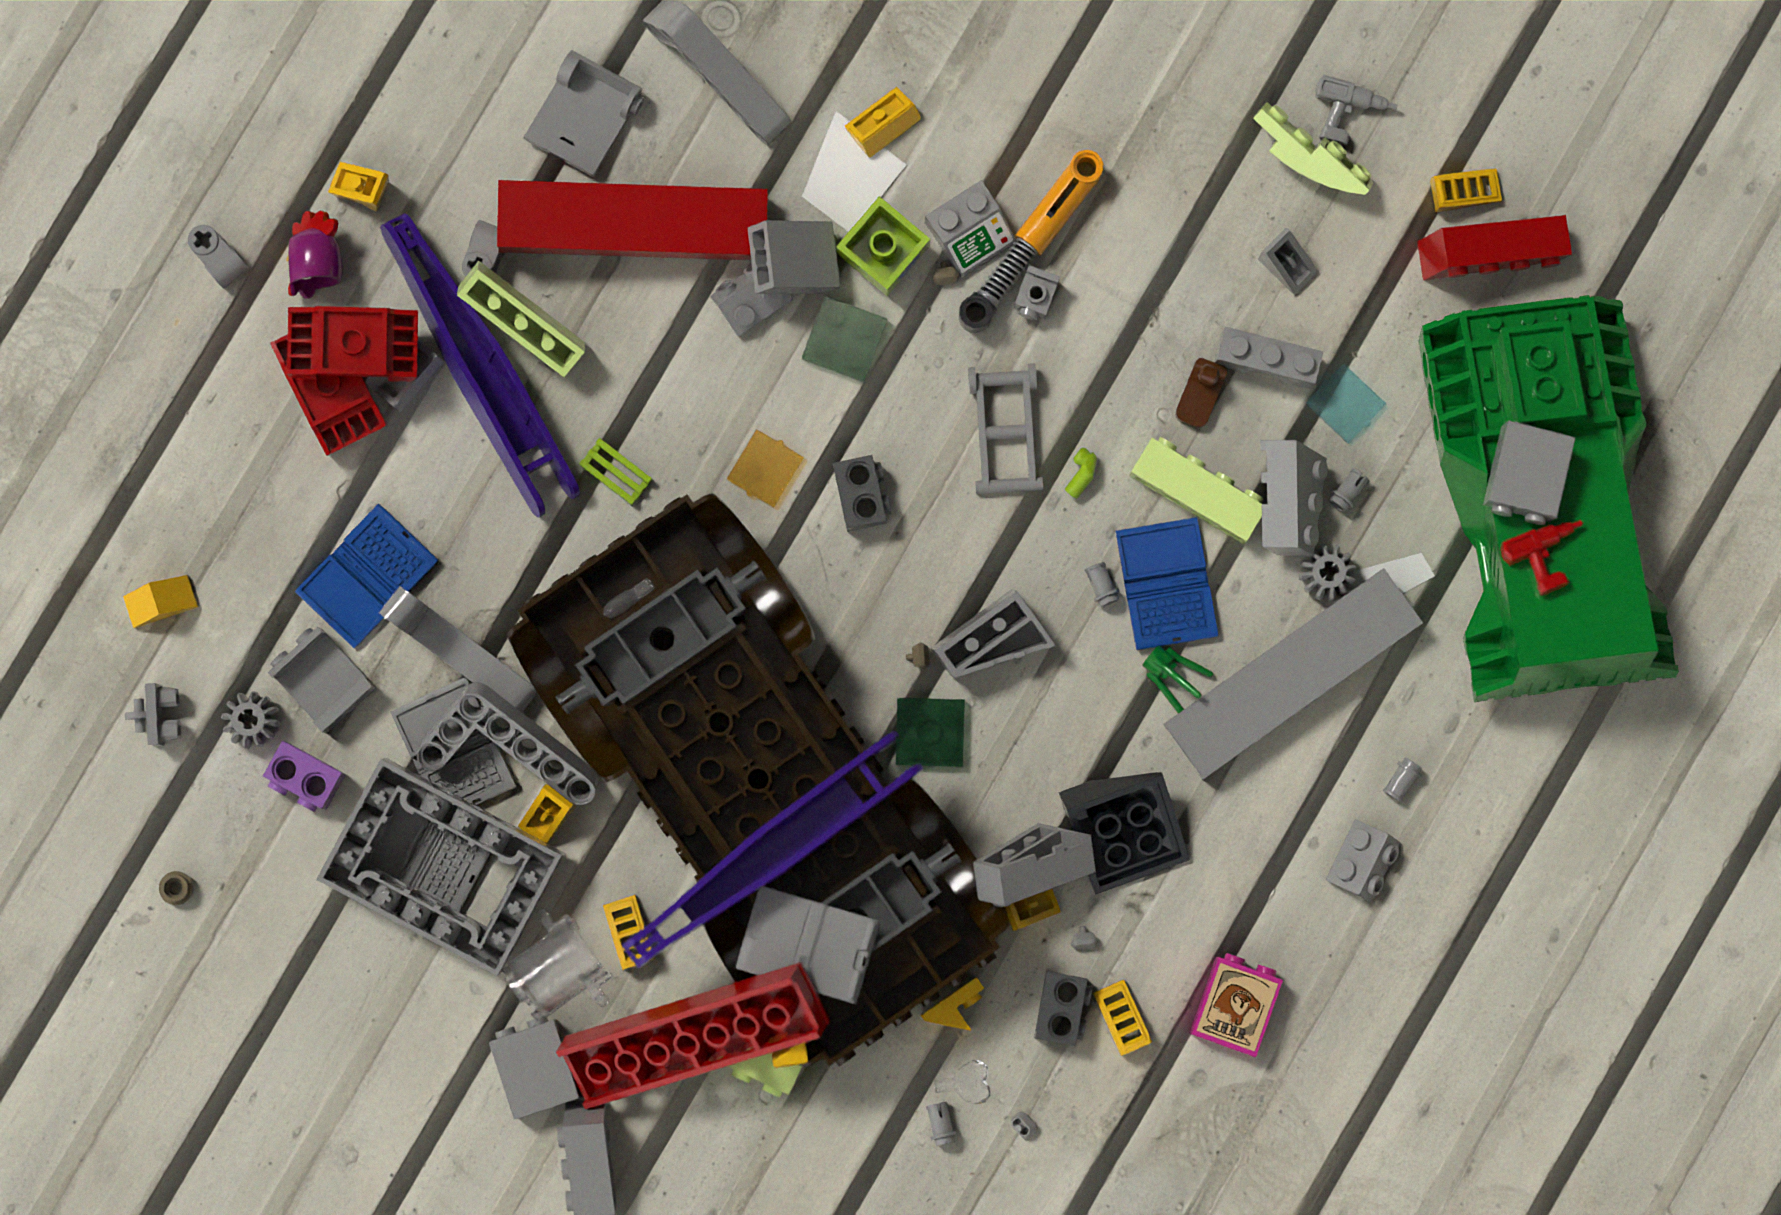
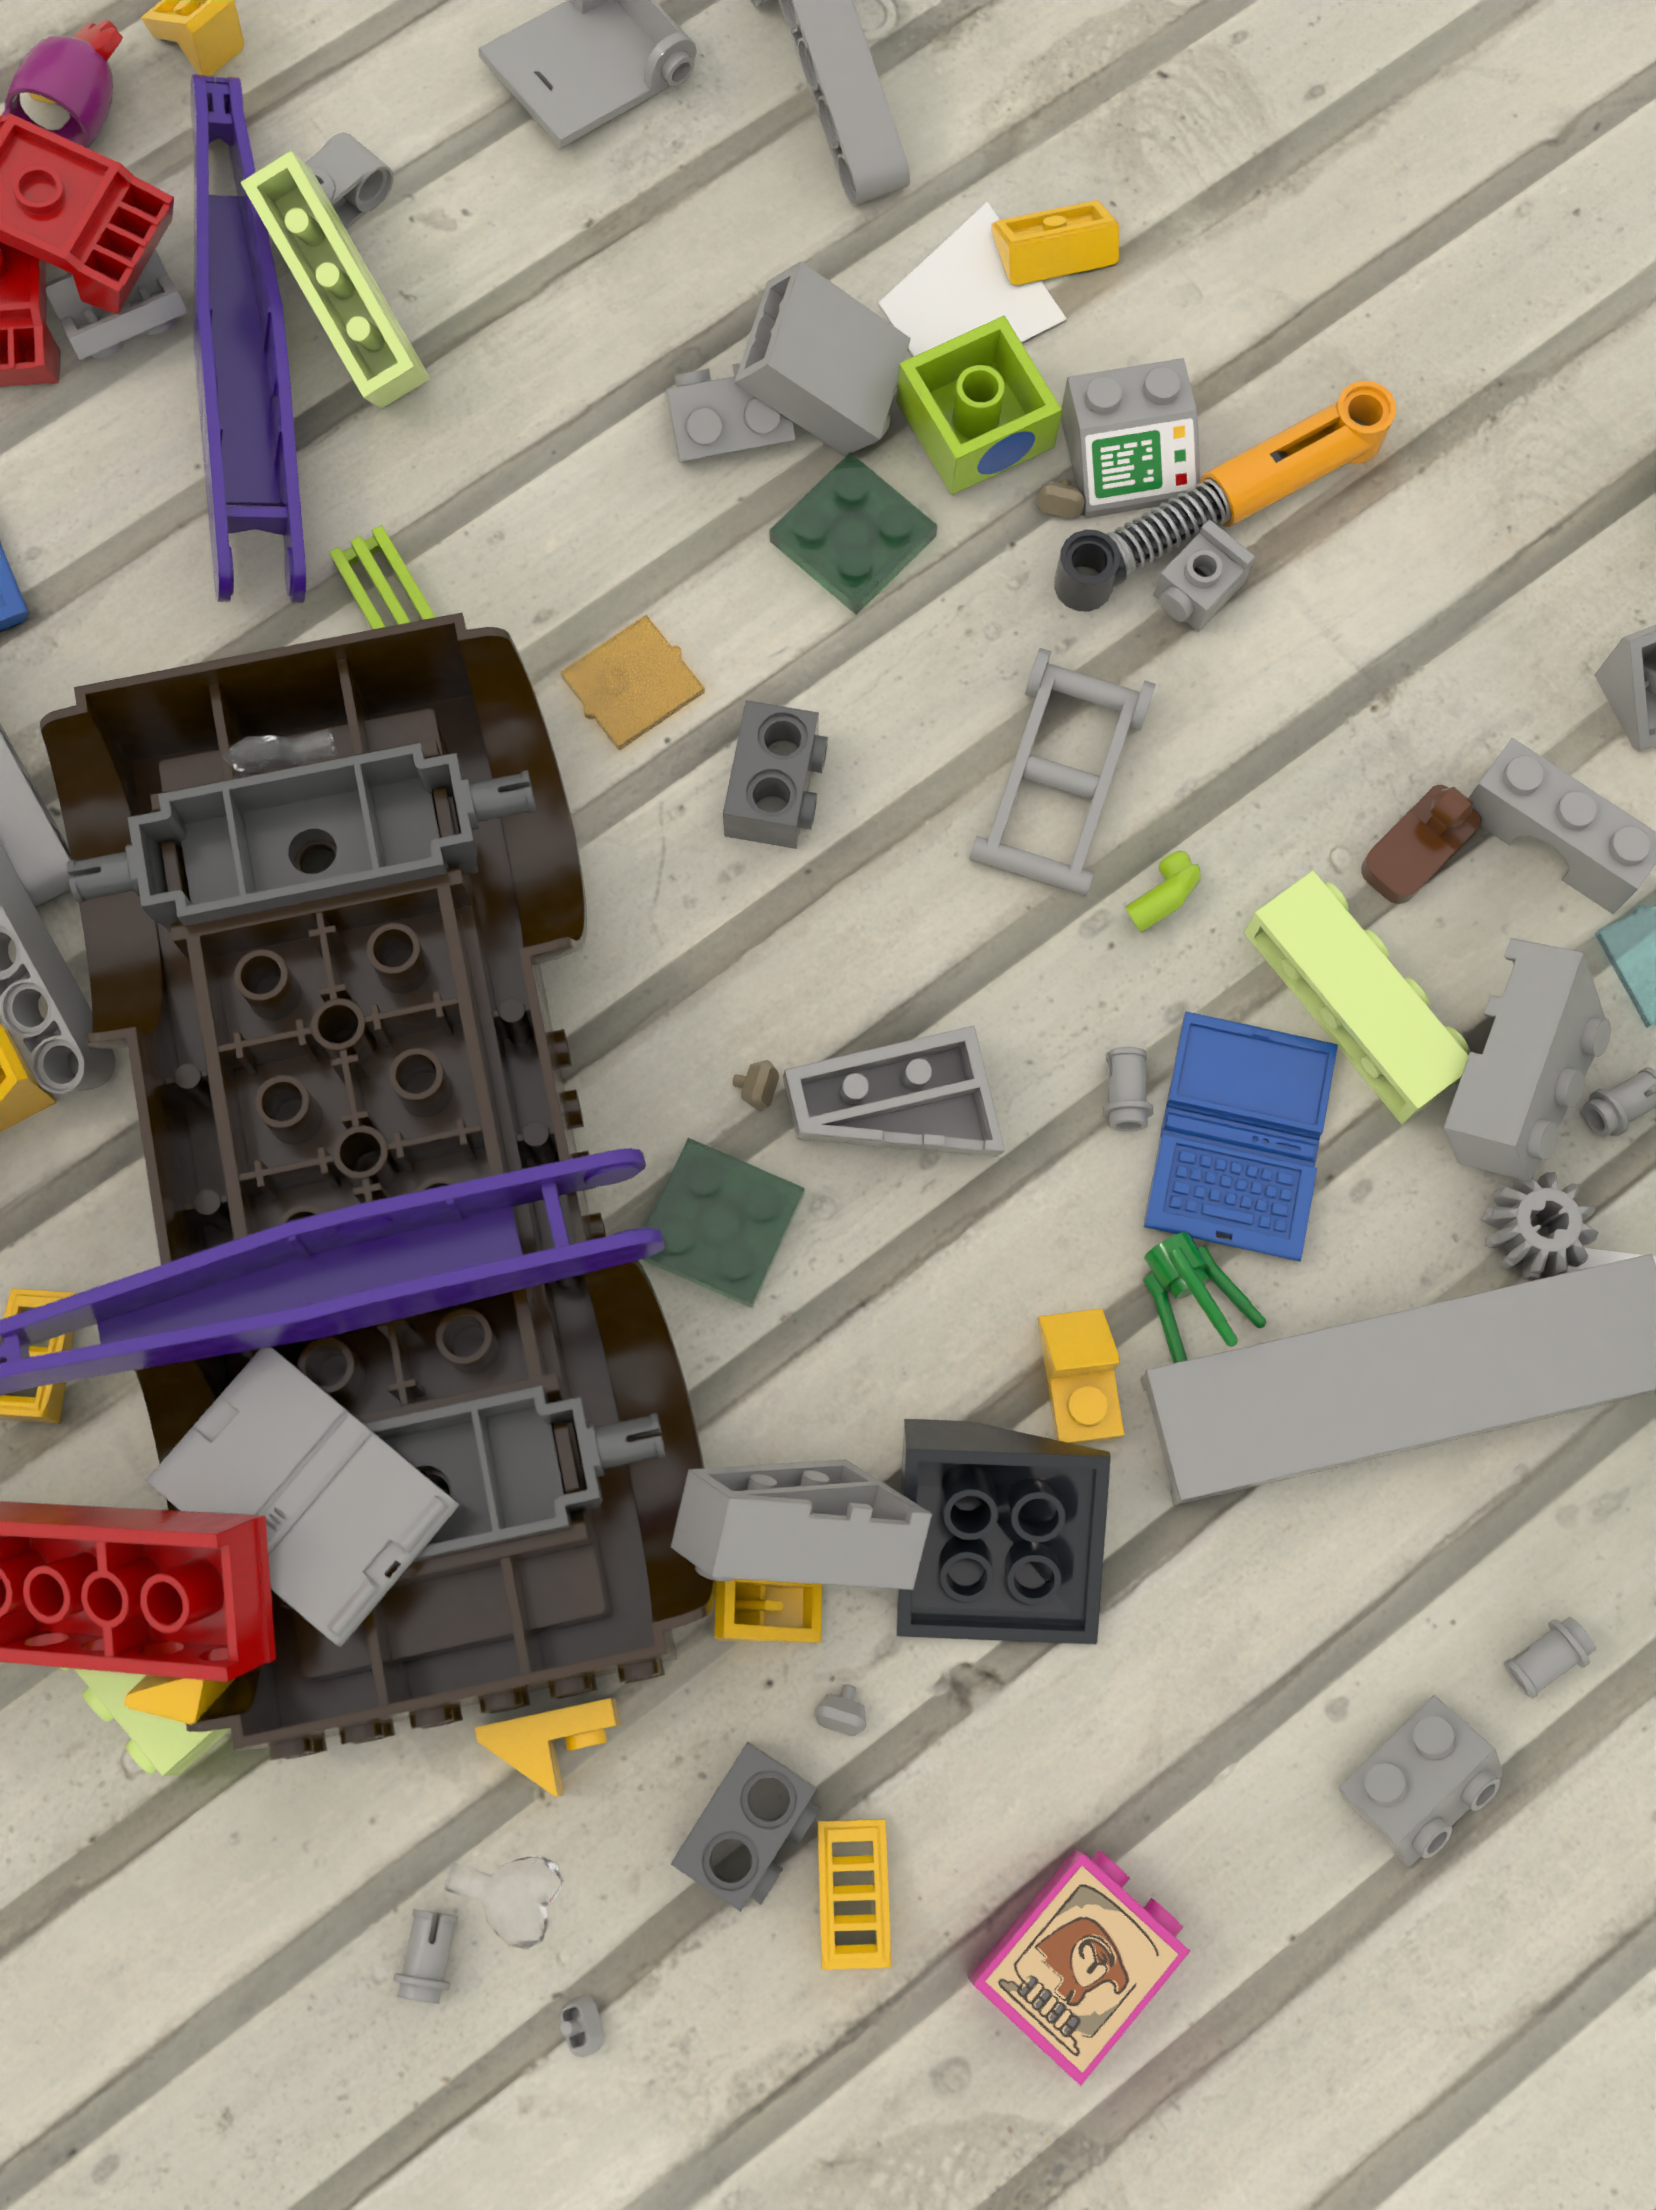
camera: 20 degrees right, 10 degrees down
(627, 219) = (570, 206): red tile -> none
(1134, 736) = (1081, 1376): none -> yellow slope

